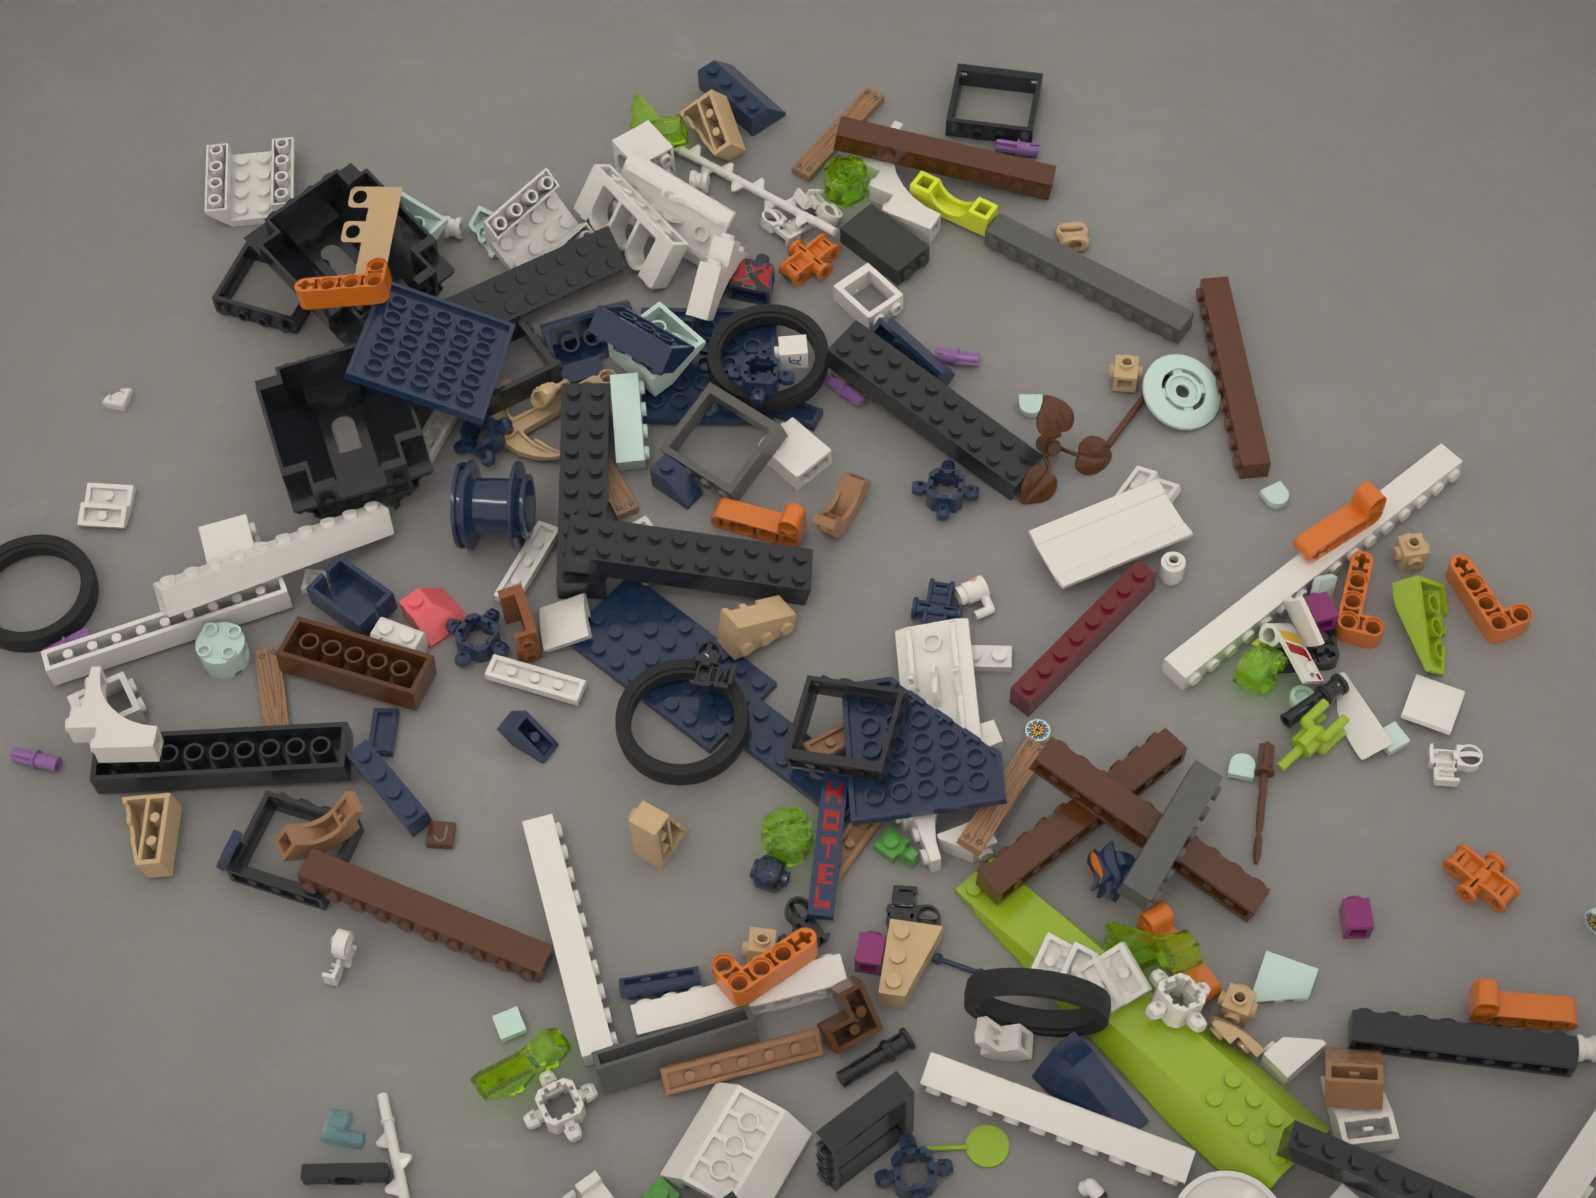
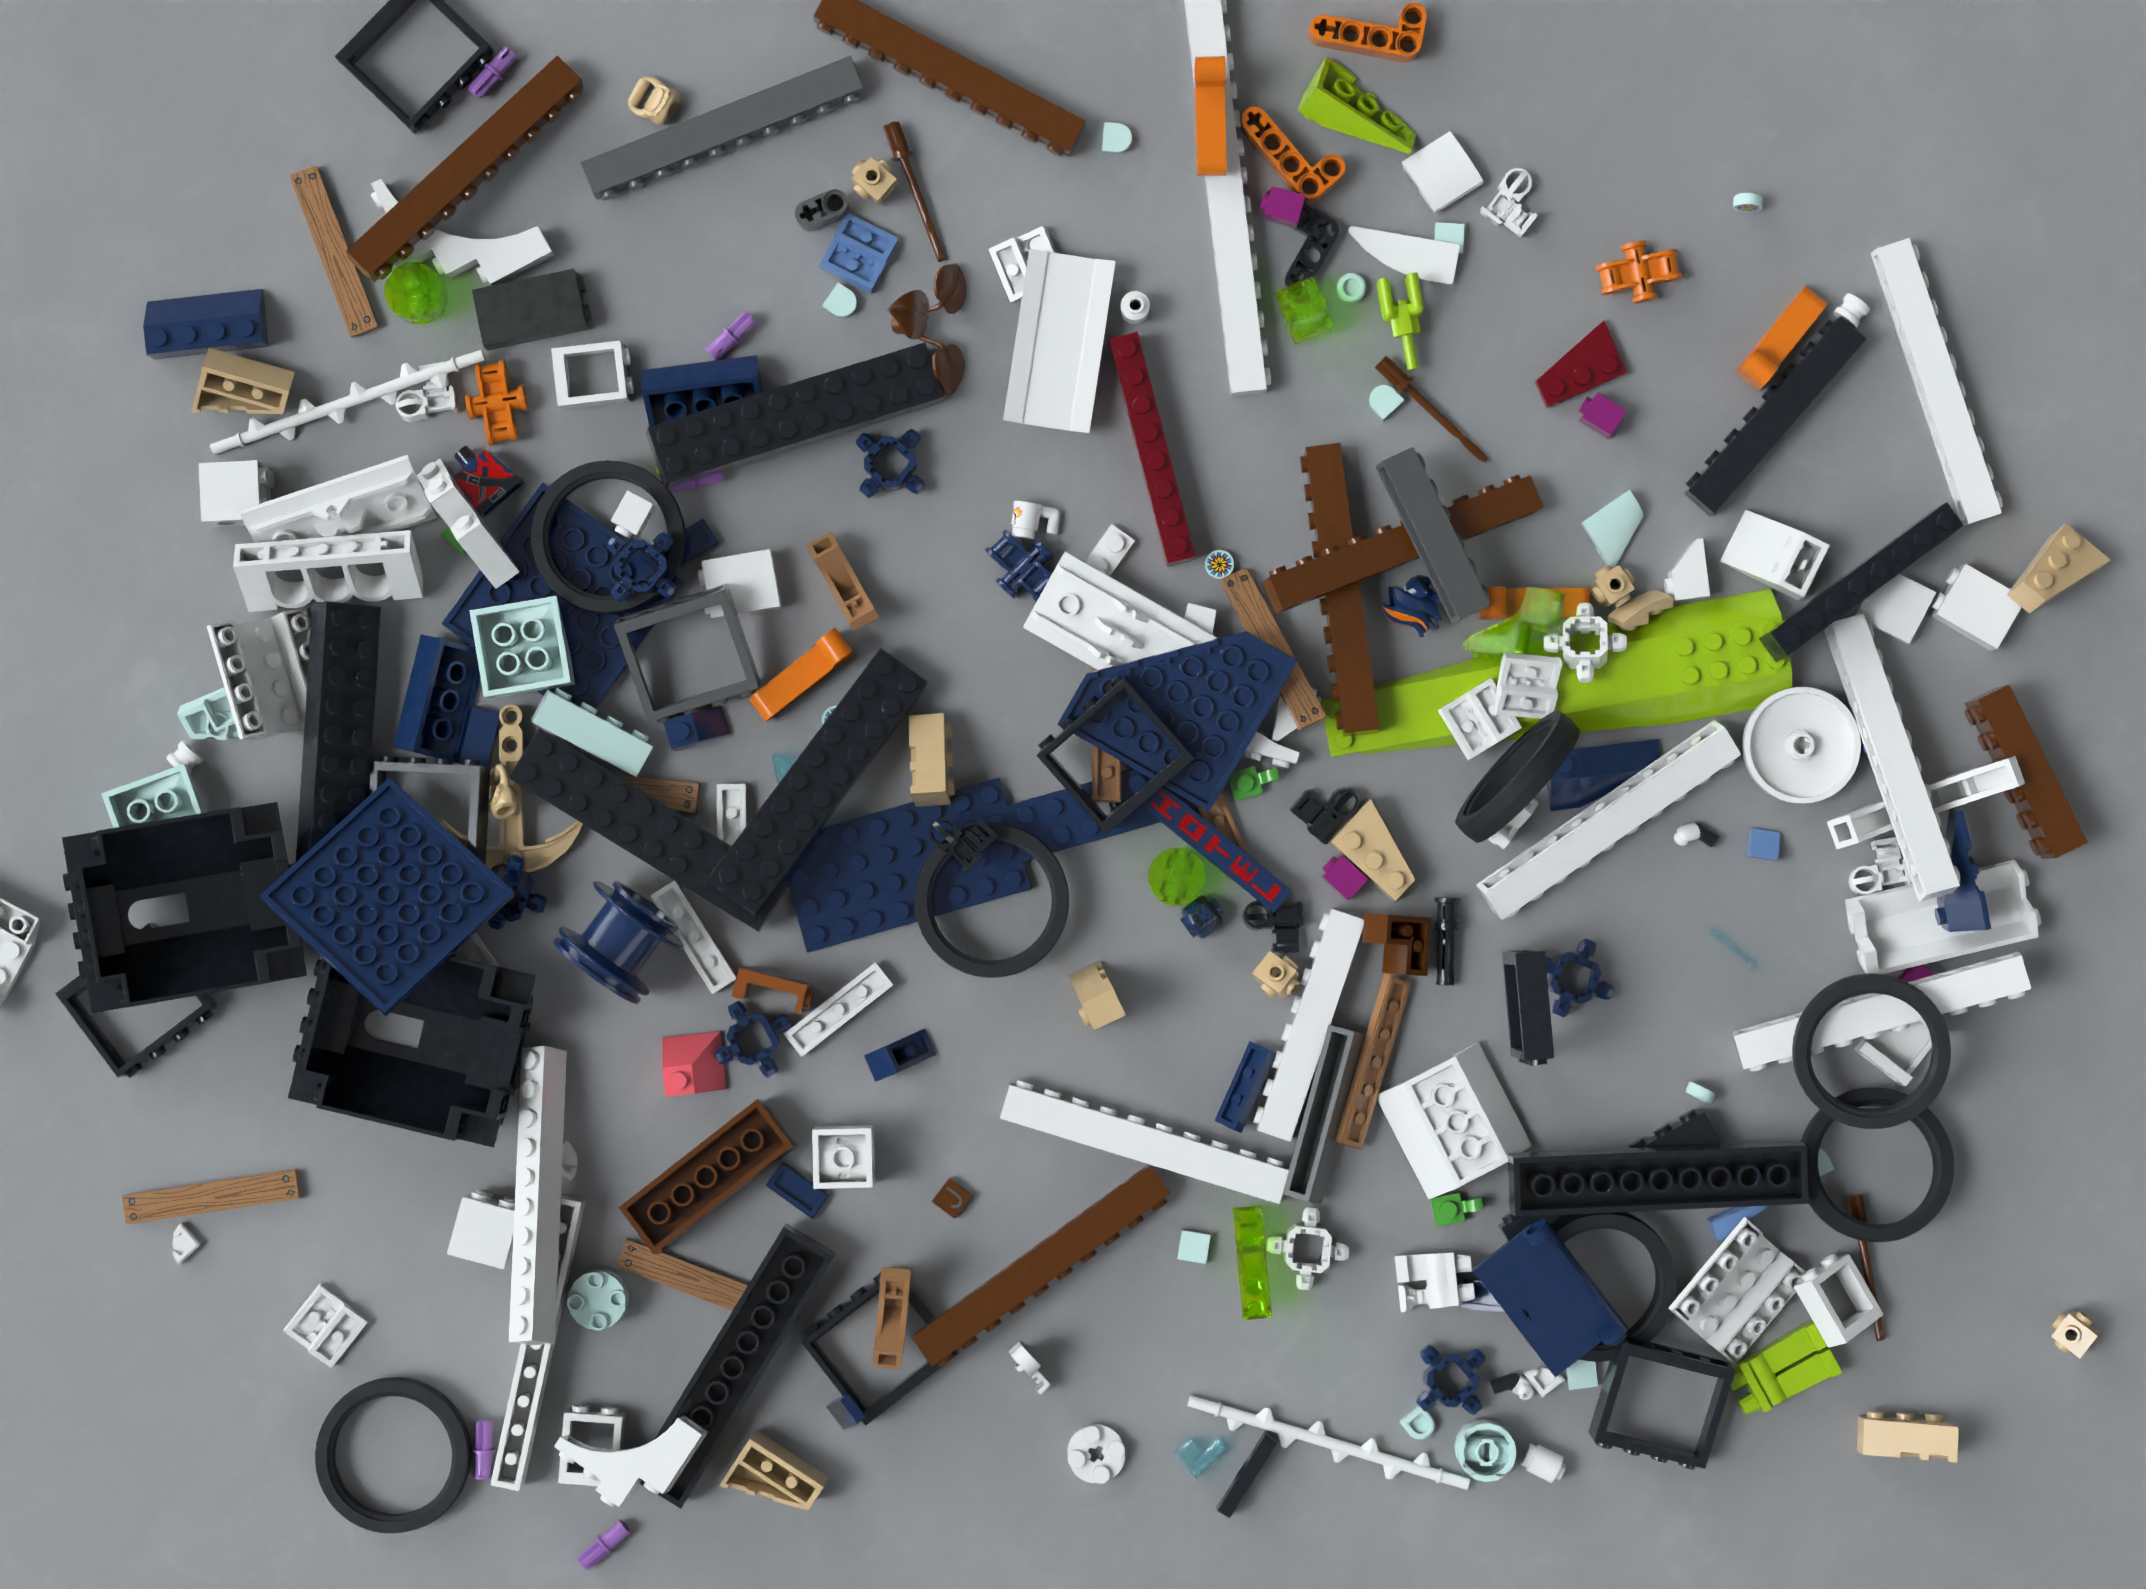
camera: 60 degrees left, 30 degrees up
(161, 397) = (211, 1196): none -> medium nougat tile
(292, 1039) = (1101, 1469): none -> white plate
(346, 290) = (254, 946): orange beam -> none
(353, 597) = (623, 1138): dark blue piece -> none
(378, 229) = (196, 870): tan piece -> none
(389, 788) = (896, 1220): dark blue arch -> none
(400, 635) = (705, 1118): white brick -> none
(426, 735) = (843, 1156): none -> white brick
(565, 623) = (794, 943): white slope -> none
(639, 338) = (514, 664): dark blue slope -> none
(671, 127) = (179, 454): clear neon green arch -> none
(700, 180) = (303, 451): white wheel -> none
(798, 948) = (1305, 982): orange beam -> none
(812, 199) = (421, 344): white piece -> none
(938, 959) = (1424, 790): dark blue hinge -> none
(971, 215) = (510, 211): neon yellow arch -> none
(984, 1146) = (1586, 897): lime piece -> none
(1076, 391) = (858, 253): none -> medium blue slope
(1081, 358) = (812, 205): none -> dark grey beam
(1170, 407) = (943, 166): light aqua piece -> none
(1286, 637) = (1286, 258): white door -> none
(1303, 621) = (1288, 233): white slope -> none
(1321, 691) = (1367, 271): black pin -> none
(1324, 583) = (1255, 178): light aqua tile -> none
(1353, 1078) = (1747, 538): medium nougat slope -> none
(1386, 887) = (1582, 368): none -> dark red wing
(1410, 552) = (1269, 71): tan brick -> none

